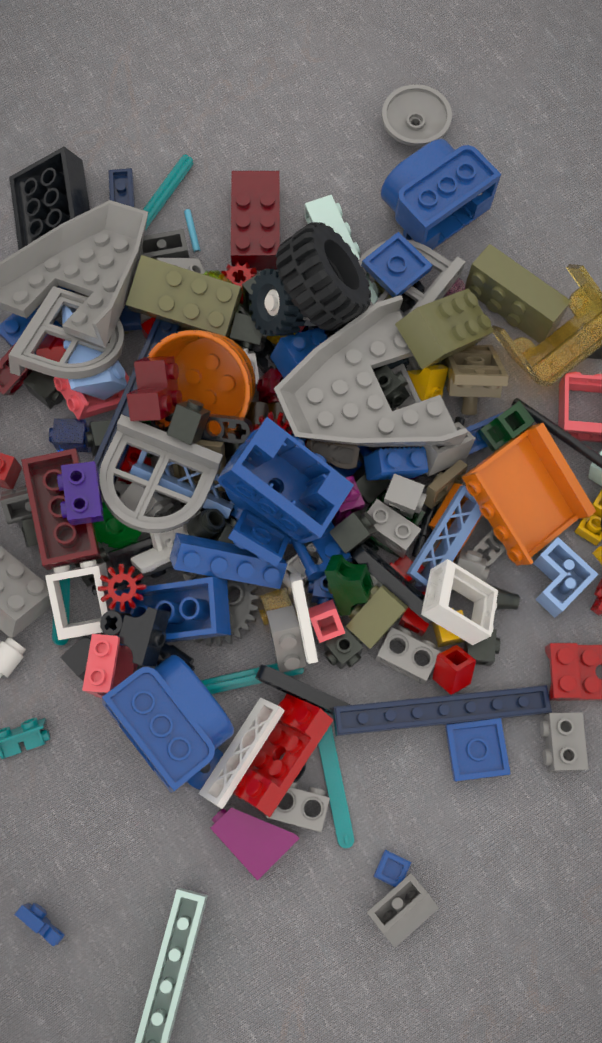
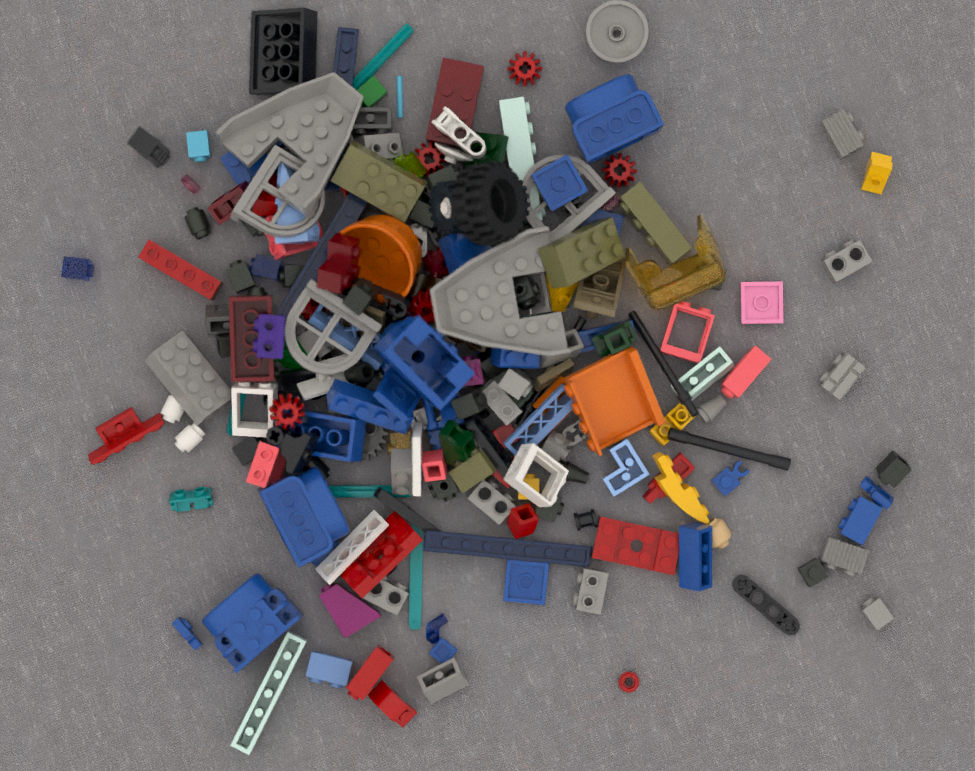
camera: 15 degrees right, 15 degrees up
(36, 445) = (240, 276): none -> pearl dark grey brick
(122, 886) = (250, 620): none -> blue brick
(159, 222) = (372, 92): none -> green brick
(244, 930) = (329, 669): none -> medium blue piece
(255, 228) = (449, 123): none -> white piece
(260, 259) = (451, 154): none -> white dish
(301, 924) = (369, 673): none -> red brick
(325, 173) = (530, 73): none -> red gear
(341, 961) = (392, 704): none -> red brick
(372, 841) = (433, 628): none -> clear blue arm
(461, 247) = (613, 166): none -> red gear
(531, 652) = (585, 519): none -> black bush

